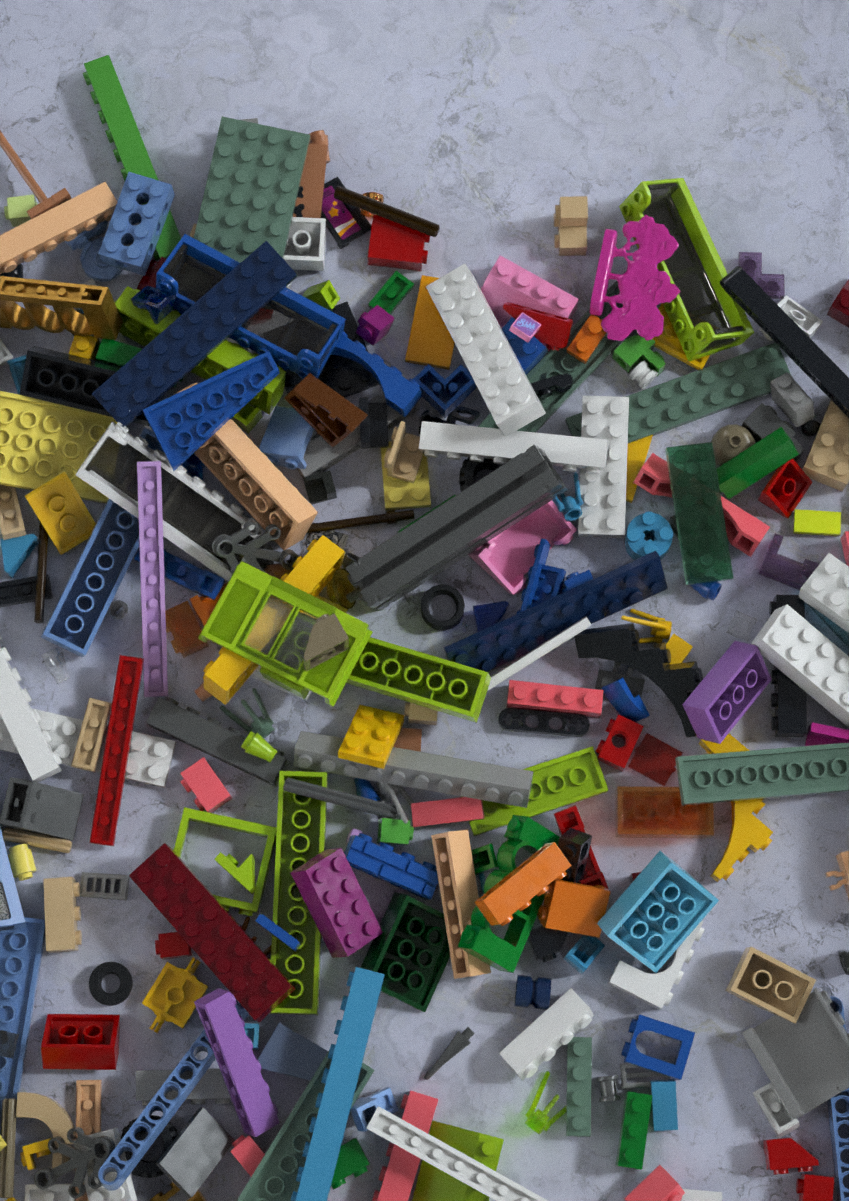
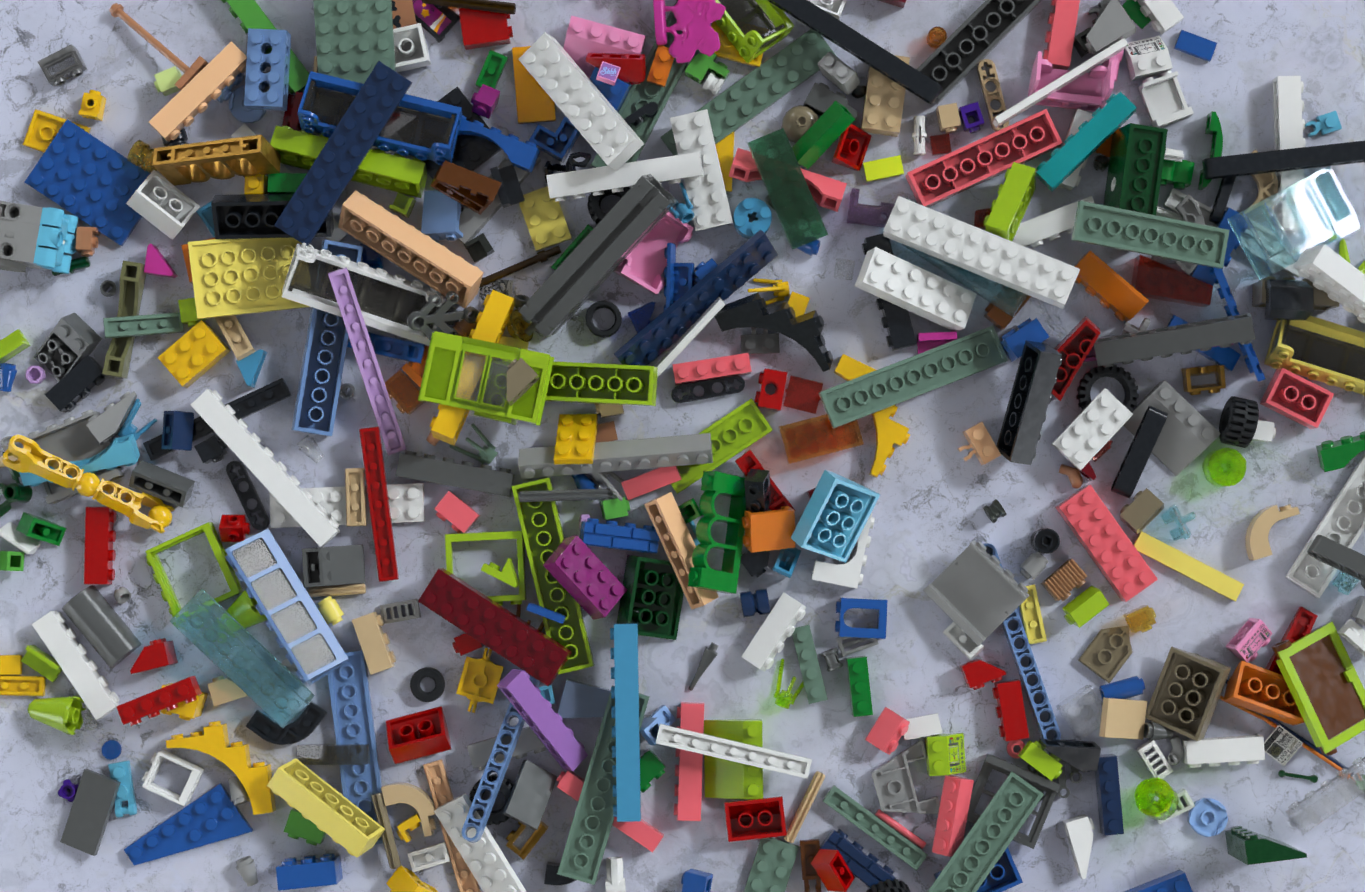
camera: 15 degrees left, 10 degrees up
(41, 575) = (265, 331): dark brown bar -> none
(61, 513) = (278, 326): yellow plate -> none
(79, 1161) = (444, 826): dark grey plant -> none
(155, 301) = (302, 134): clear blue slope -> none
(197, 413) = (364, 218): blue wing -> none
(258, 746) = (489, 472): lime cone -> none
(323, 294) = (435, 88): lime panel -> none
(404, 457) = (540, 205): tan bracket -> none
(523, 884) = (725, 526): orange brick -> none
(624, 702) = (763, 354): blue slope -> none
(664, 1105) = (877, 660): dark azure tile -> none
(727, 692) = (846, 328): medium lavender brick -> none
(770, 984) = (936, 547): tan slope -> none

